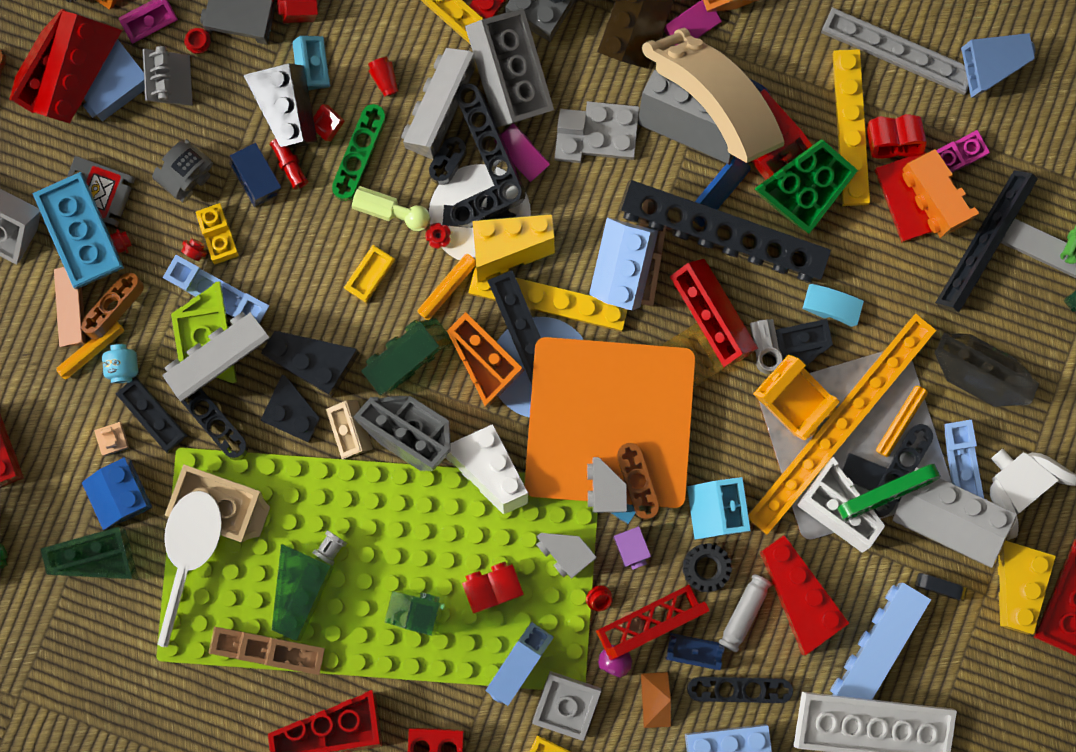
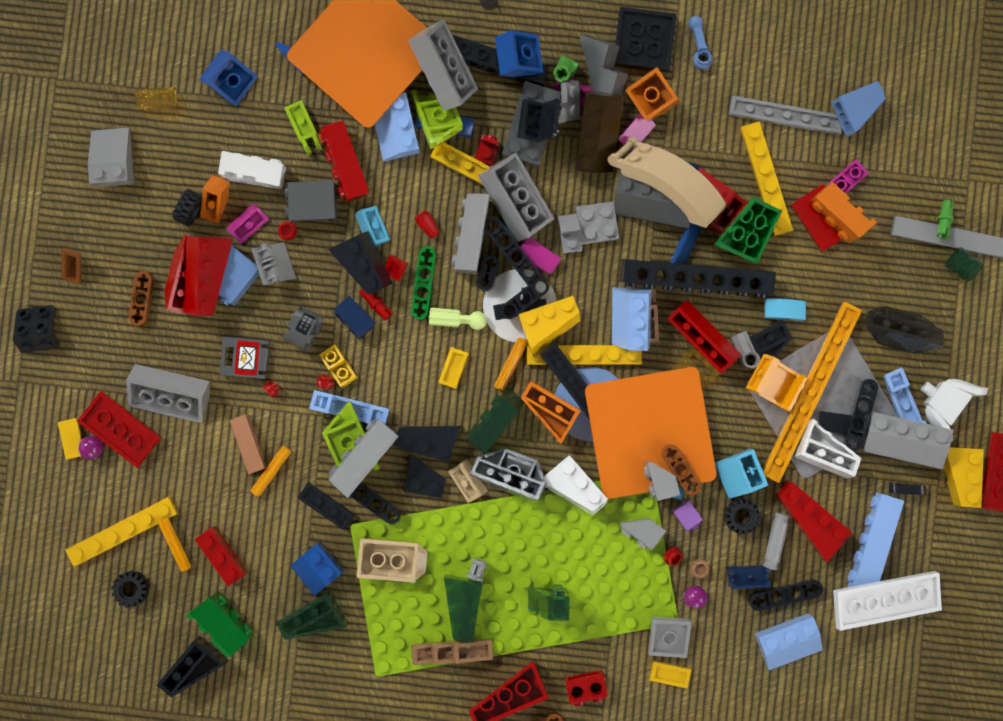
camera: 15 degrees left, 5 degrees up
(78, 230) = (240, 390): dark azure tile -> none
(111, 439) = (303, 530): light nougat tile -> none
(120, 364) = (295, 477): medium azure head -> none
(129, 296) = (289, 426): dark orange beam -> none
(189, 542) = (379, 590): white piece -> none
(435, 242) = (490, 329): red plate -> none
(492, 588) = (598, 569): red brick -> none
(519, 664) = (630, 617): medium blue slope -> none
(656, 700) = (729, 615): dark orange slope -> none
(660, 628) = (720, 570): red fence -> none
(889, 492) = (860, 436): green beam -> none
(896, 136) = (801, 178): red brick -> none
(901, 421) = (852, 379): light orange axle -> none
(986, 241) = (881, 237): black plate -> none

